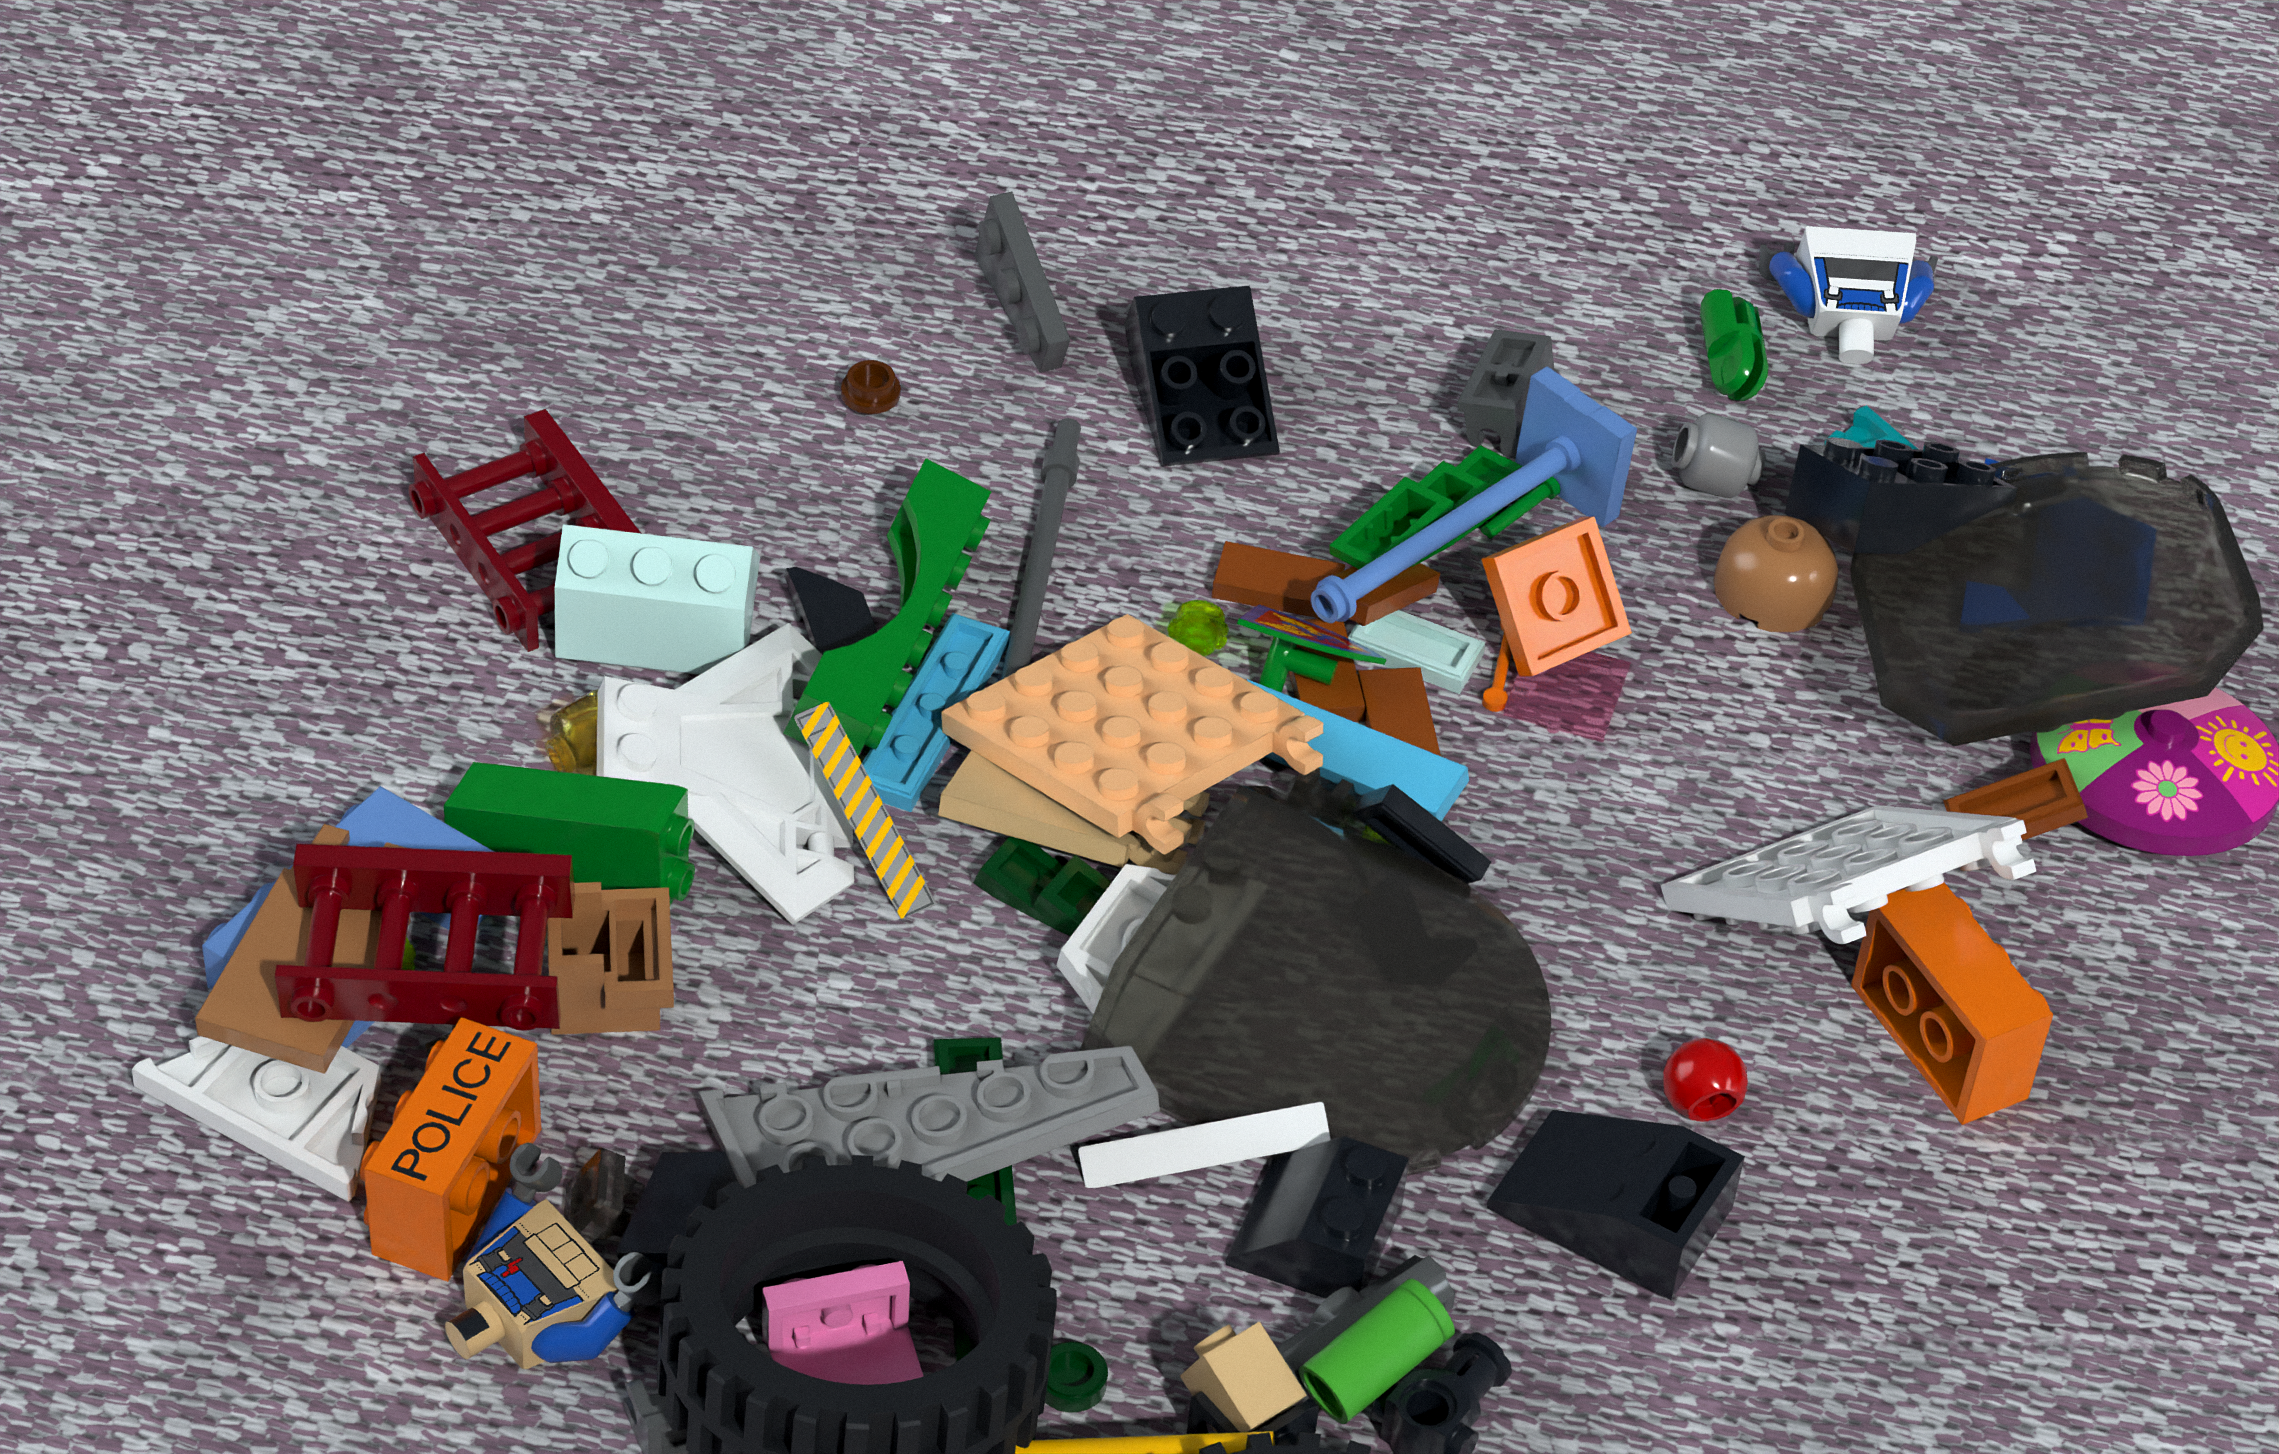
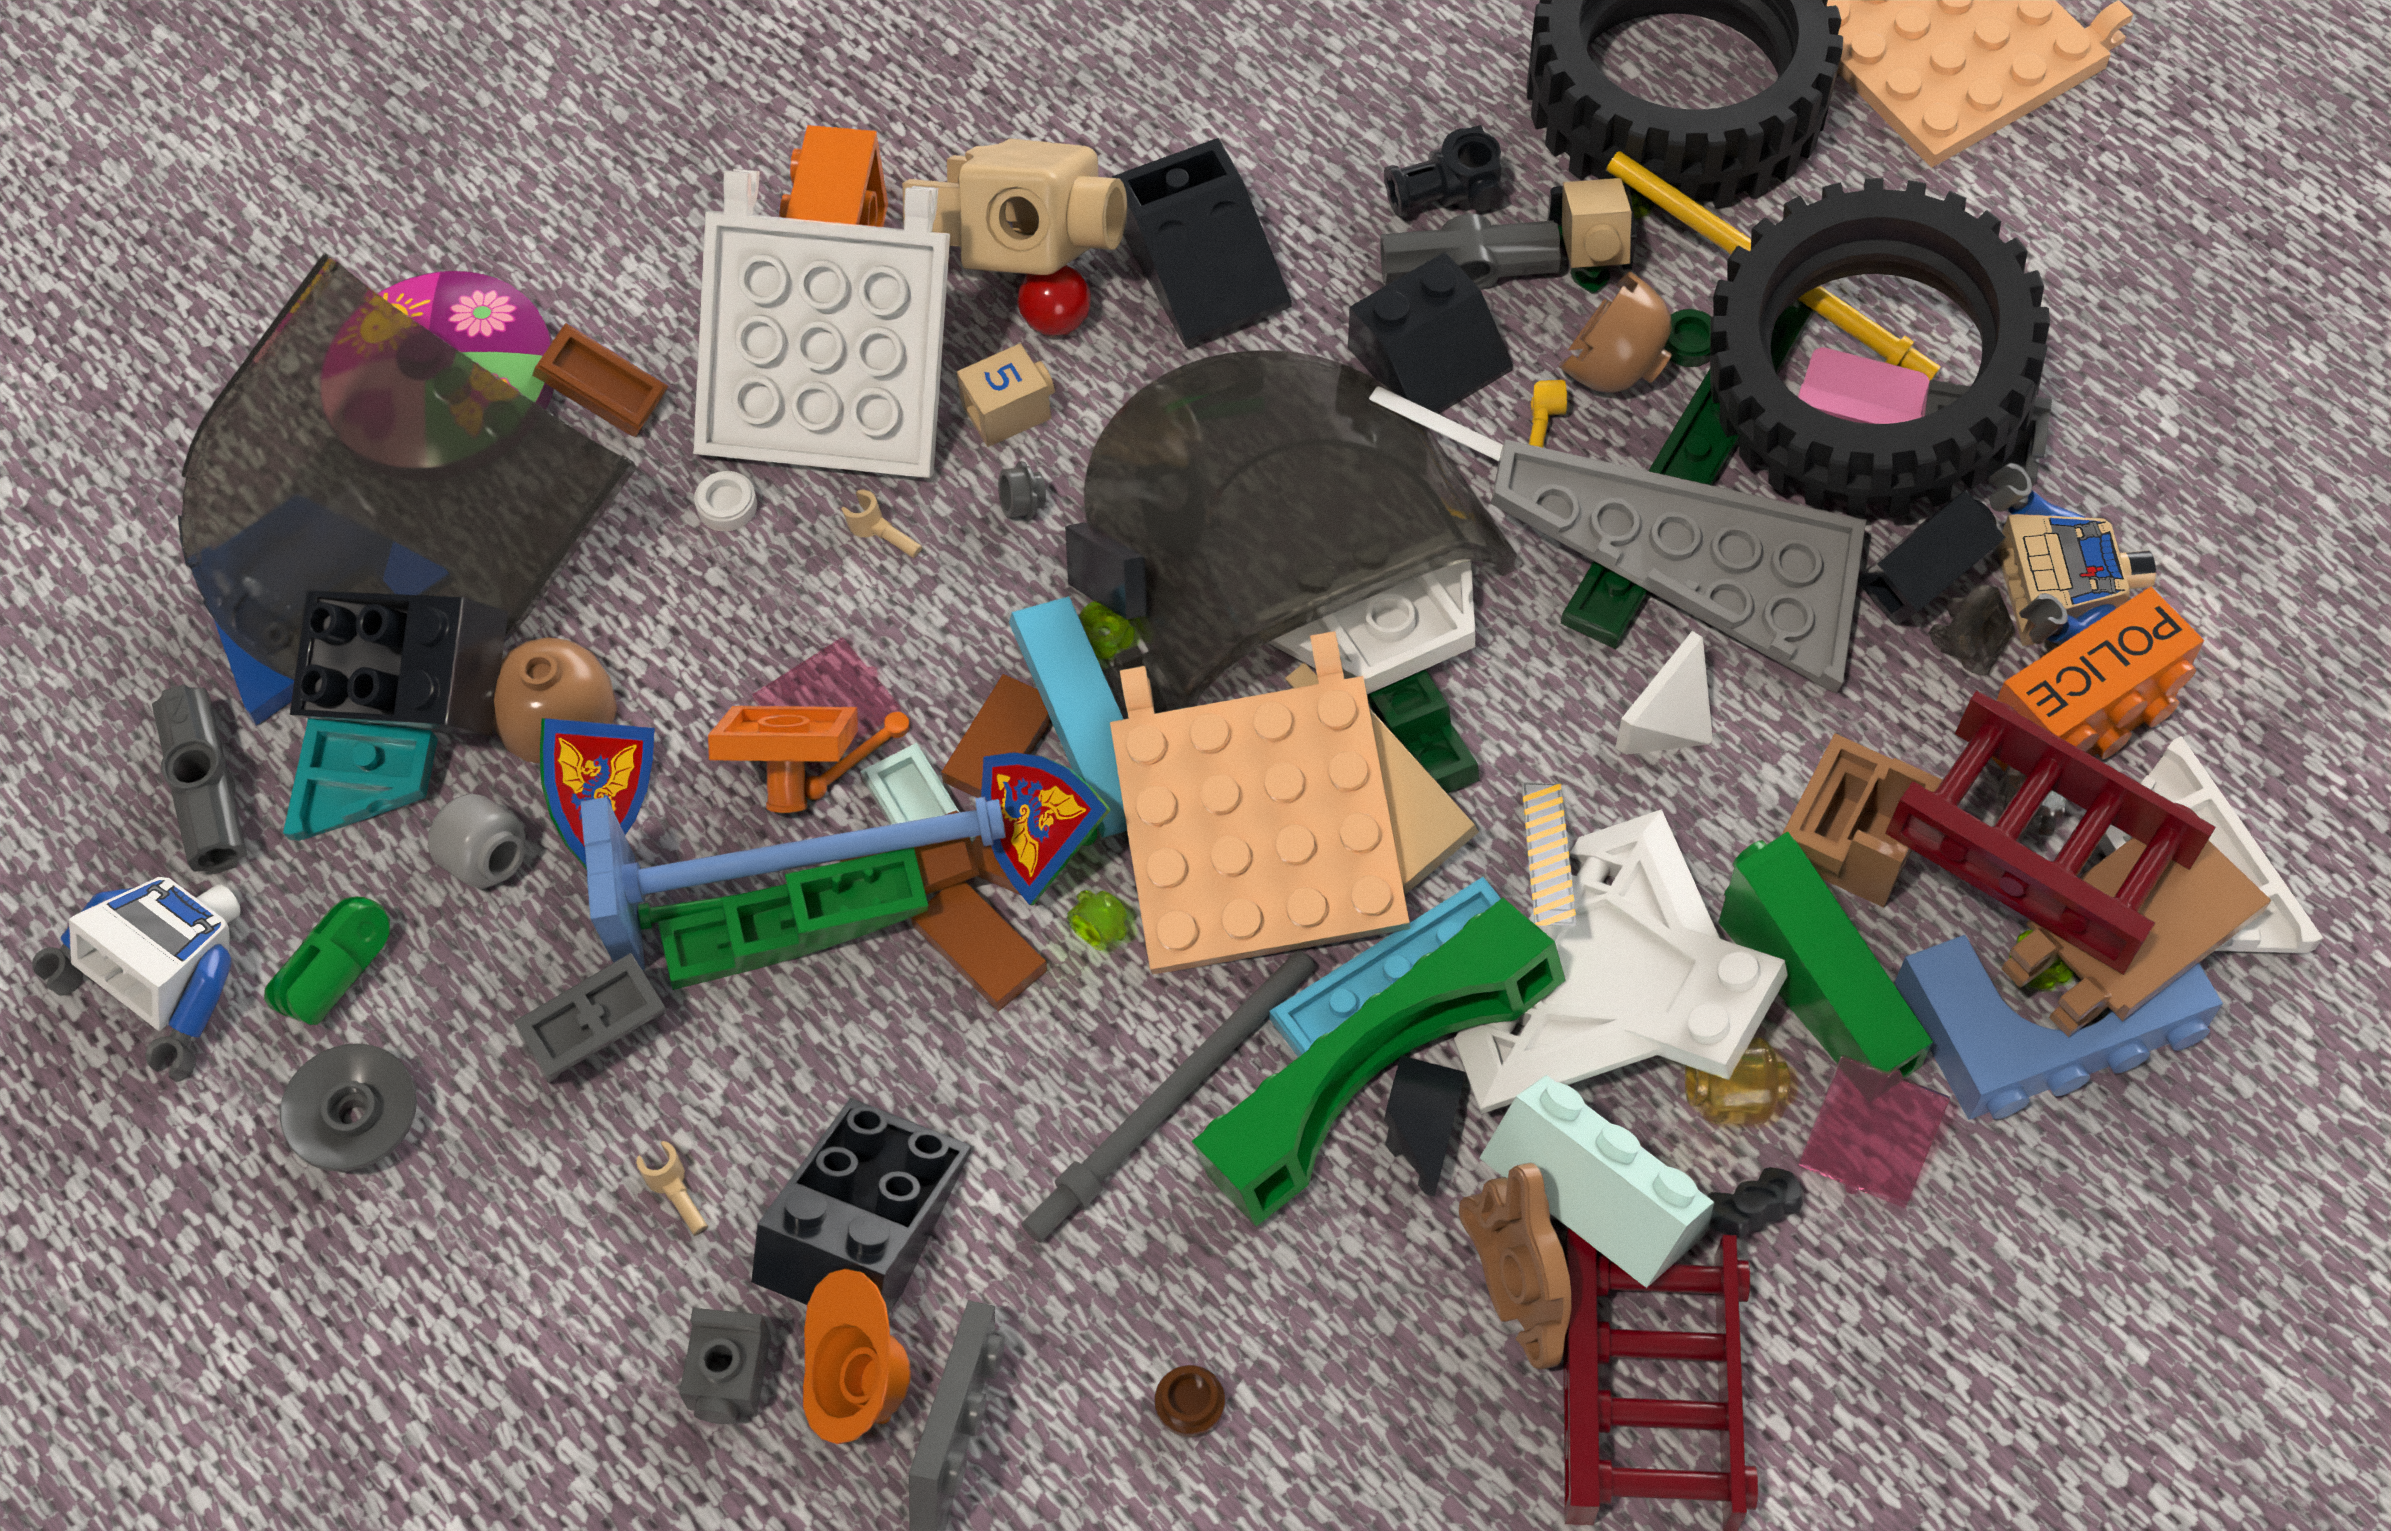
camera: 140 degrees left, 15 degrees up
(458, 747) = (1873, 1131): none -> clear pink piece
(527, 673) = (1756, 1203): none -> black piece
(674, 509) = (1522, 1260): none -> medium nougat tile
(839, 1003) = (1672, 707): none -> white slope
(1105, 287) = (852, 1362): none -> orange piece
(1130, 1294) = (1622, 340): none -> medium nougat cylinder
(1161, 1234) = (1547, 399): none -> yellow hand
(1205, 252) = (737, 1390): none -> dark grey brick
(1364, 354) = (669, 1181): none -> tan hand
(1376, 1351) = (1489, 185): bright green pin -> none
(1569, 906) = (1021, 491): none -> dark grey plate
(1619, 276) = (330, 1087): none -> dark grey dish
(1661, 969) = (1005, 394): none -> tan brick
(1671, 517) = (591, 763): none -> shield
(1679, 835) = (872, 523): none -> tan hand
(1793, 1083) = (1046, 193): none -> tan piece
(1811, 789) = (725, 501): none -> white tile
(1966, 402) = (205, 807): none -> dark grey piece

